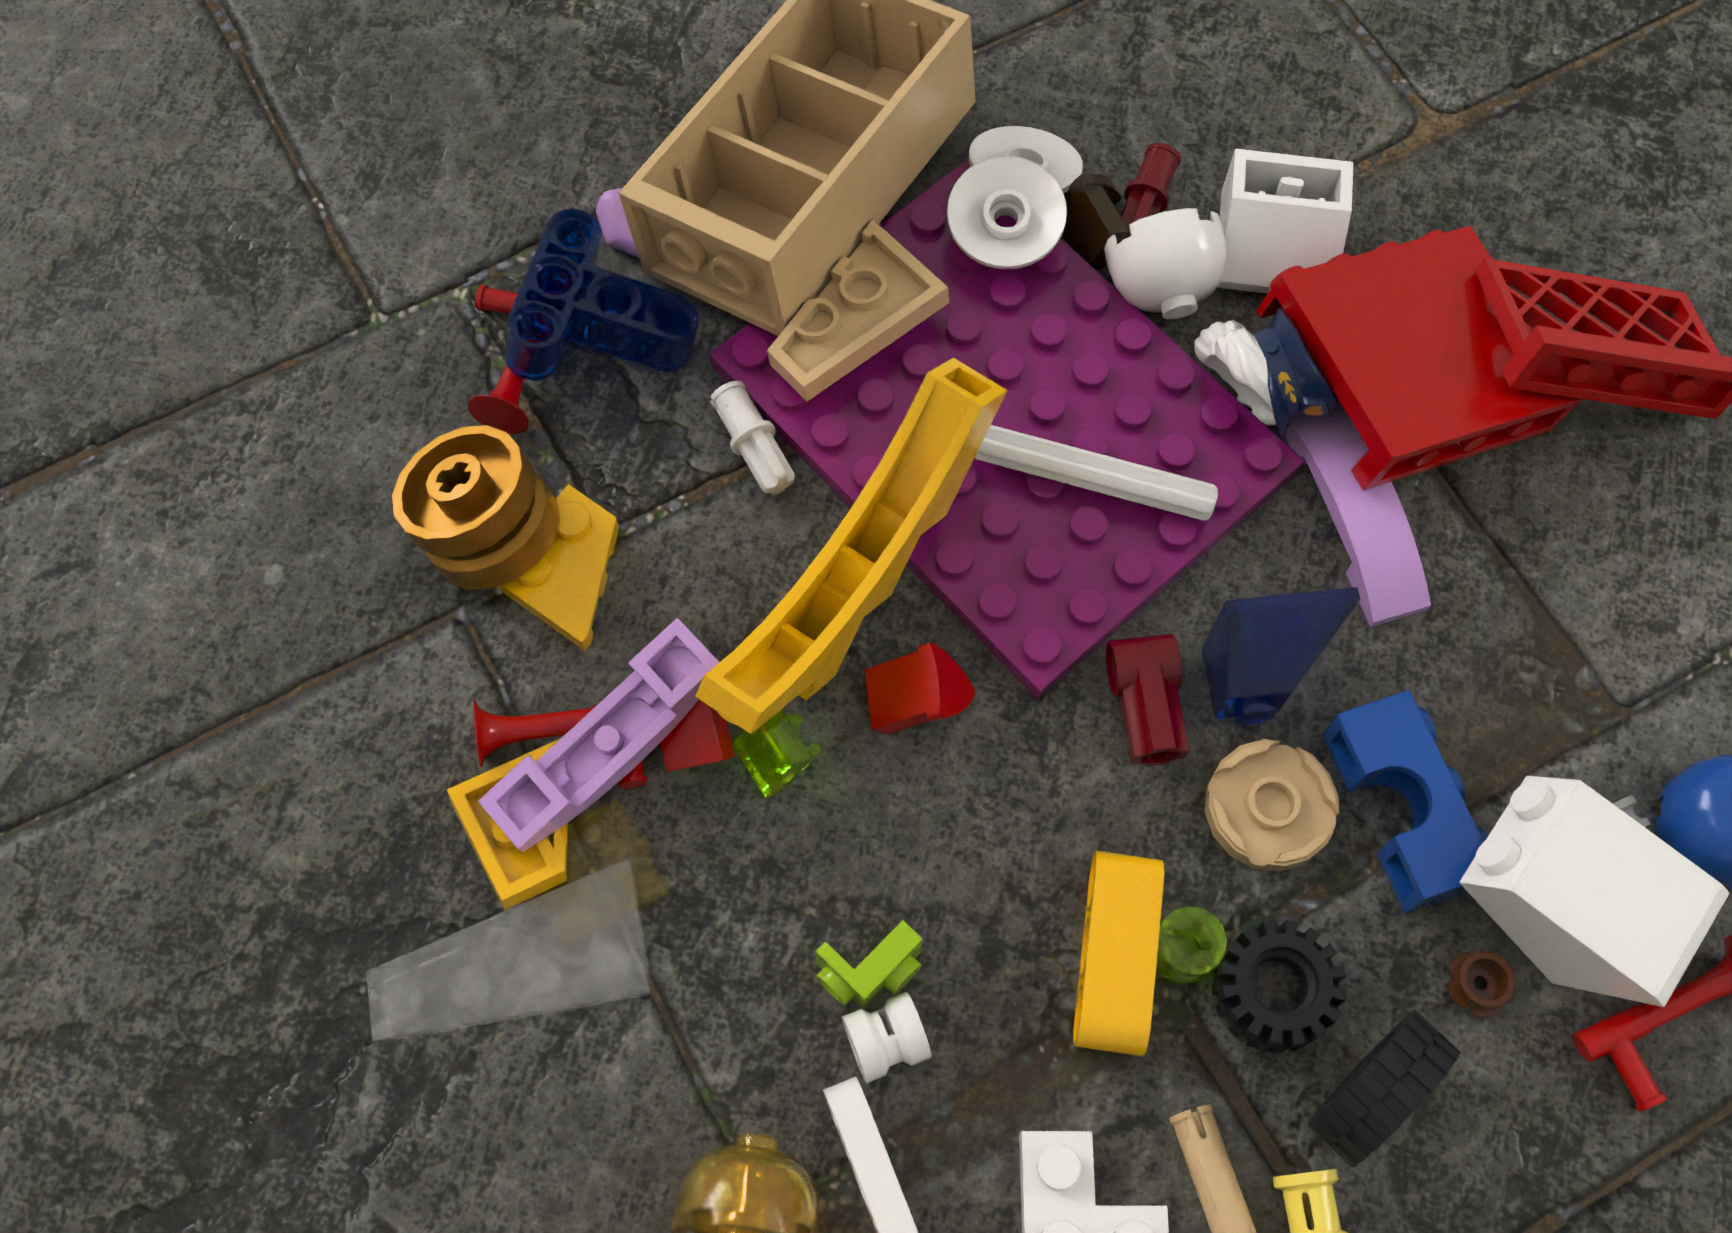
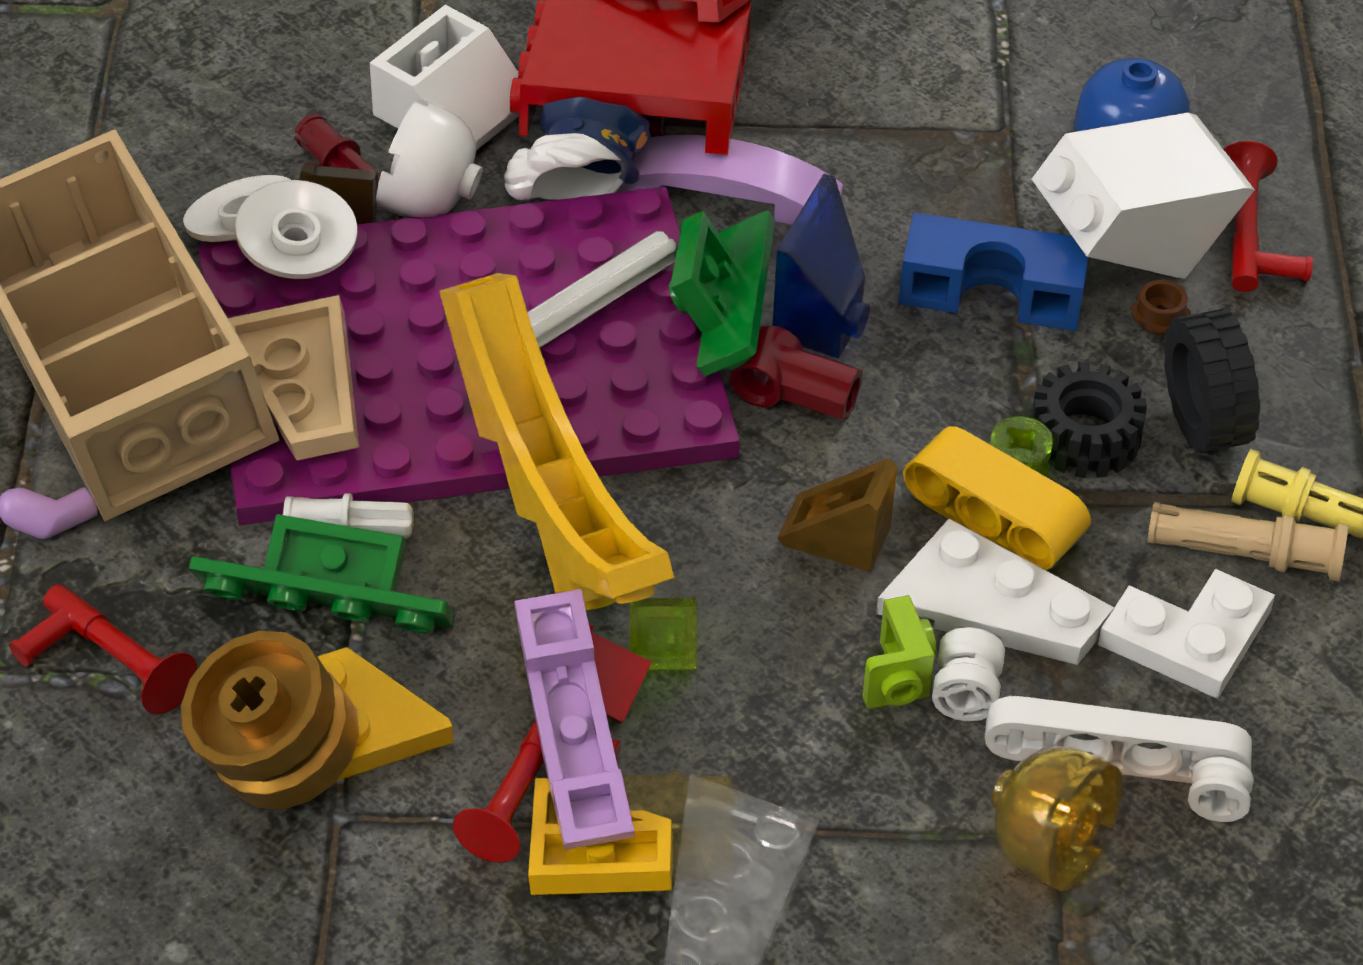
camera: 60 degrees left, 20 degrees down
(568, 267) = (116, 566): clear blue beam -> none
(680, 460) = (330, 567): none -> green bracket
(916, 690) = (679, 515): red tile -> none
(1004, 828) = (844, 517): none -> pearl gold slope
(1009, 1011) = (980, 585): none -> white wing
(1196, 566) = (723, 286): none -> green bracket
(1271, 805) = (937, 357): tan tile -> none

